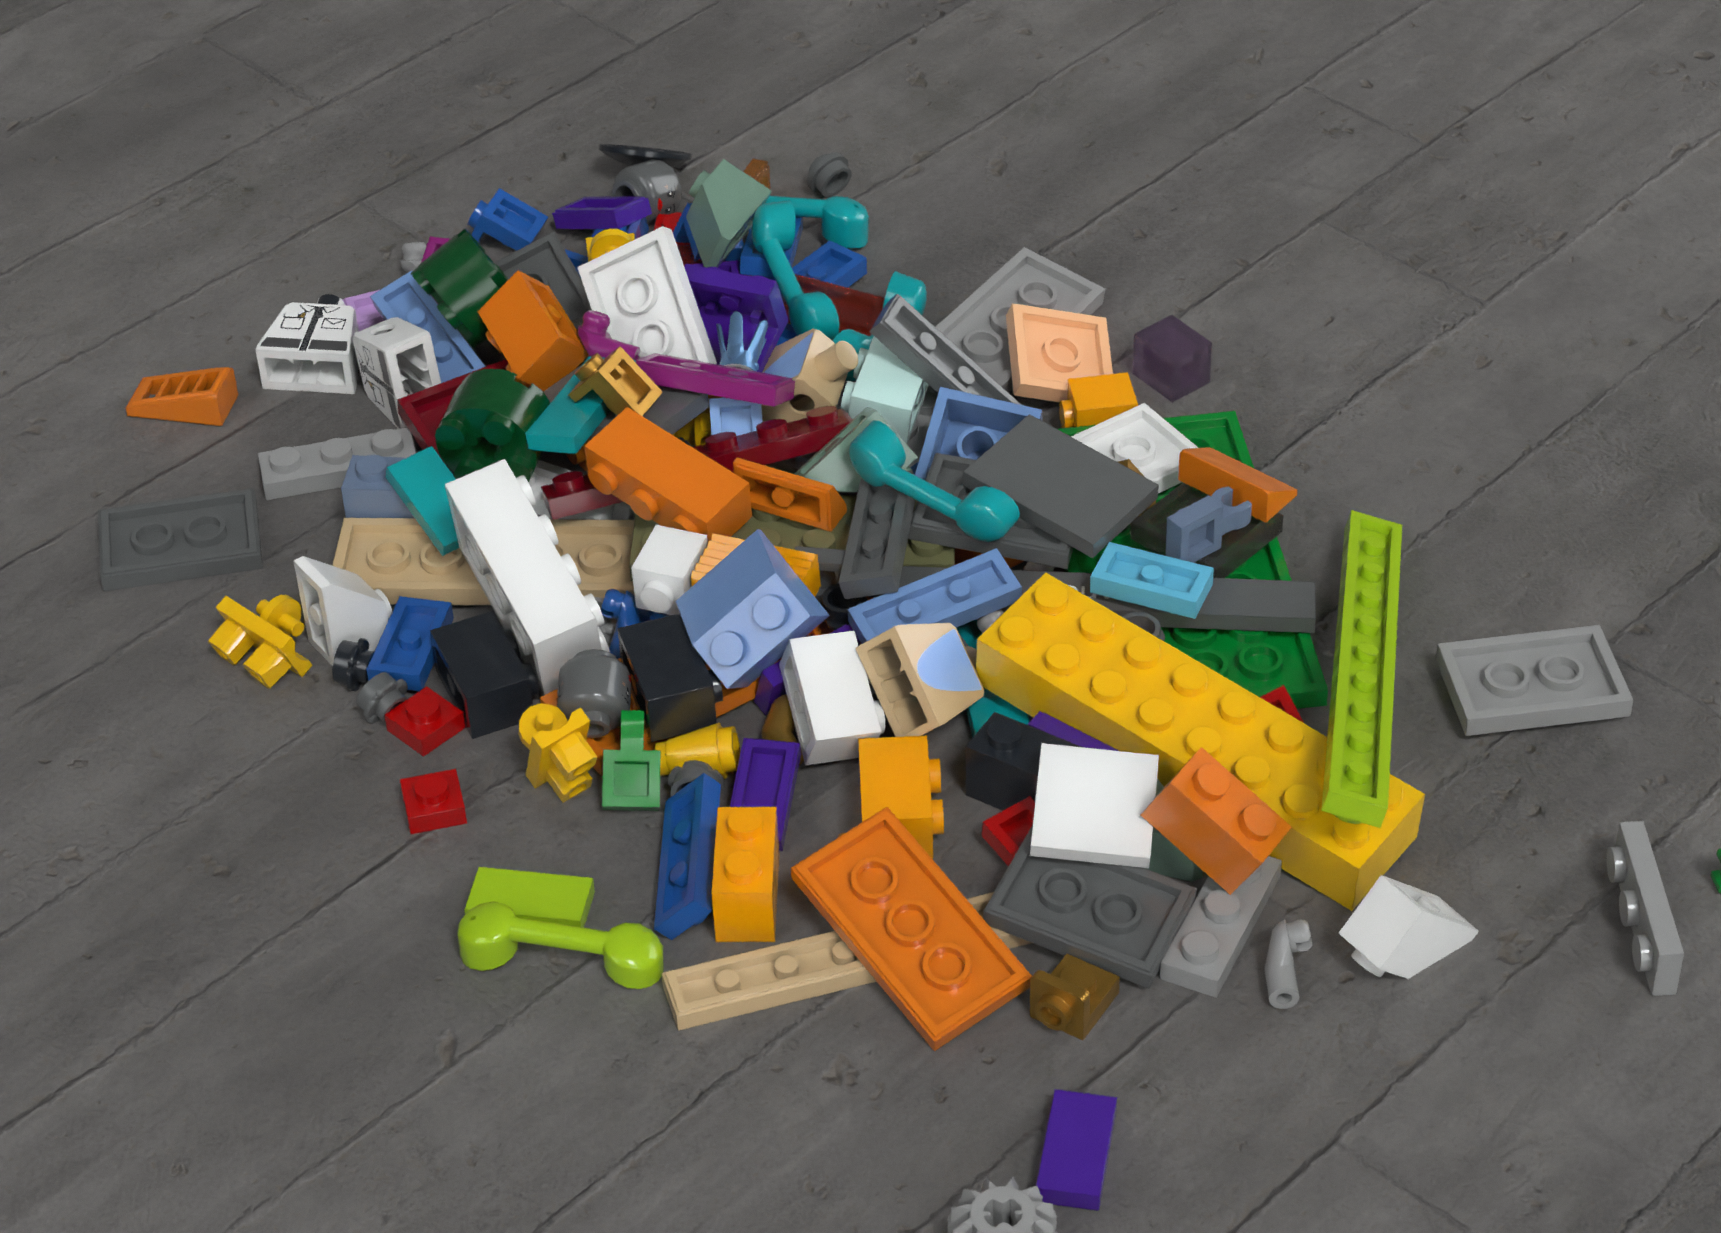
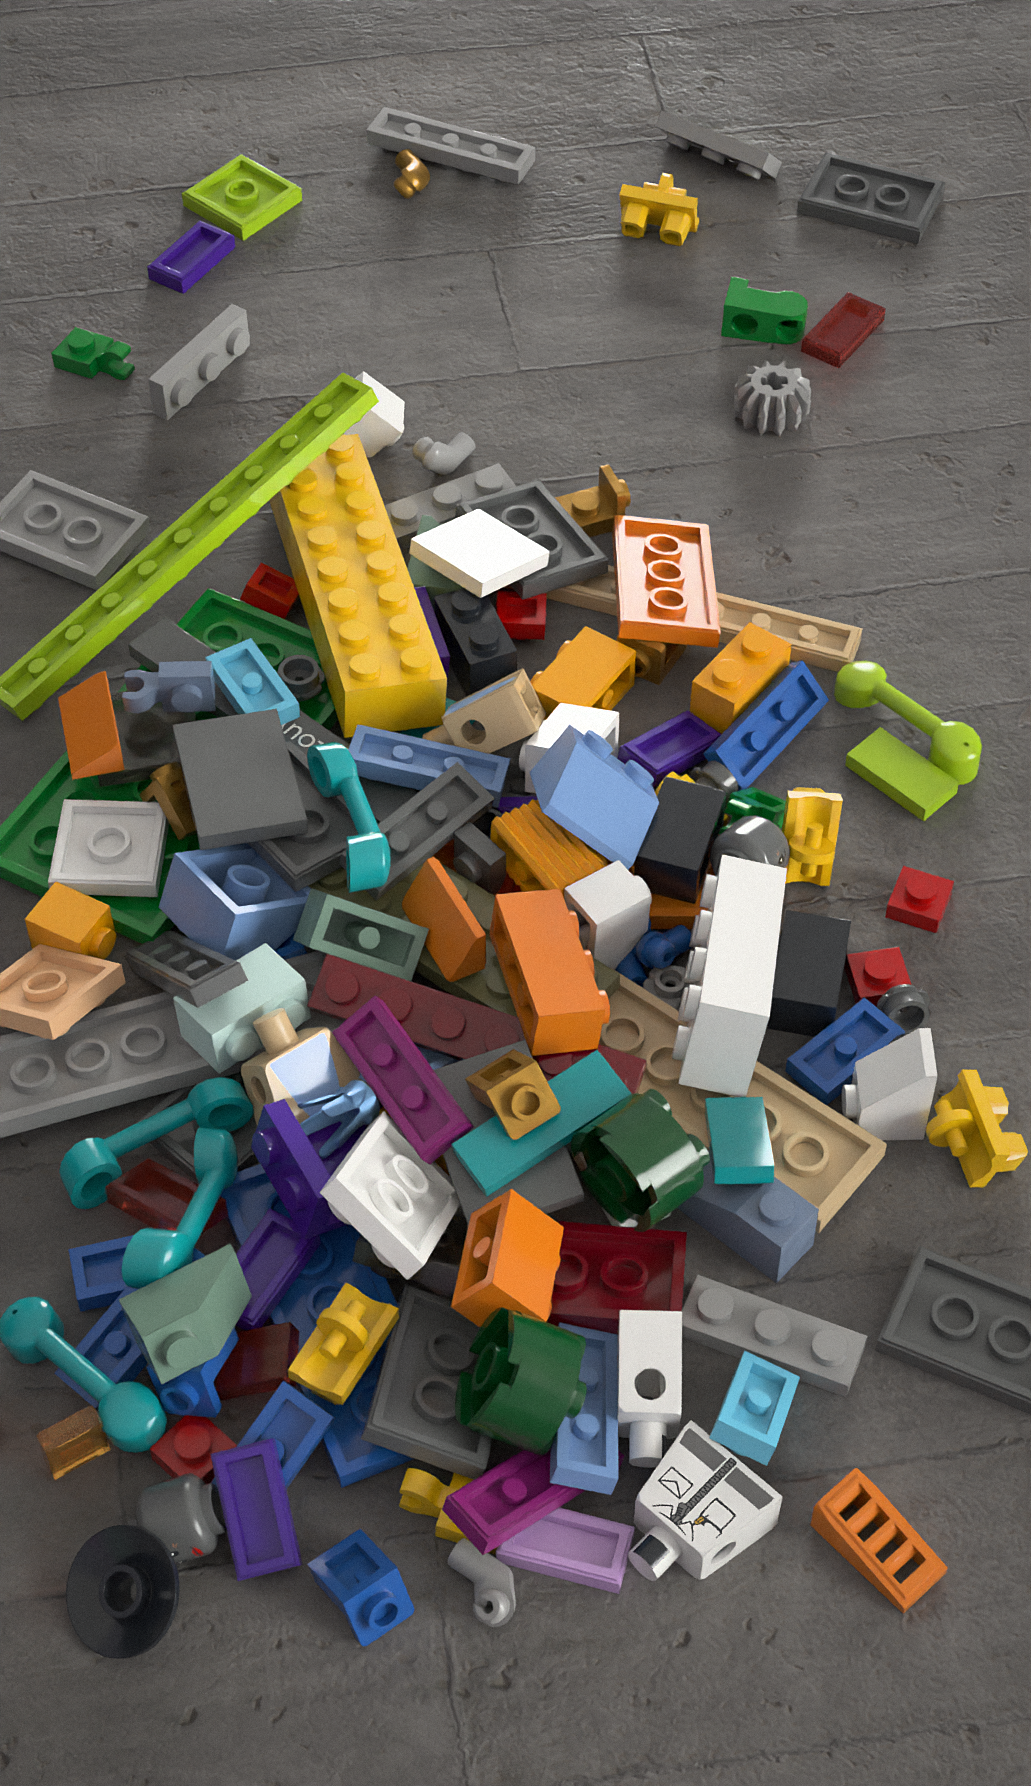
camera: 145 degrees left, 10 degrees up
(312, 394) = (755, 1408): none -> medium azure plate
(597, 340) = (460, 1202): magenta arm -> none
(1076, 1149) = (678, 431): dark purple tile -> none
(1216, 821) = (422, 484): orange brick -> none

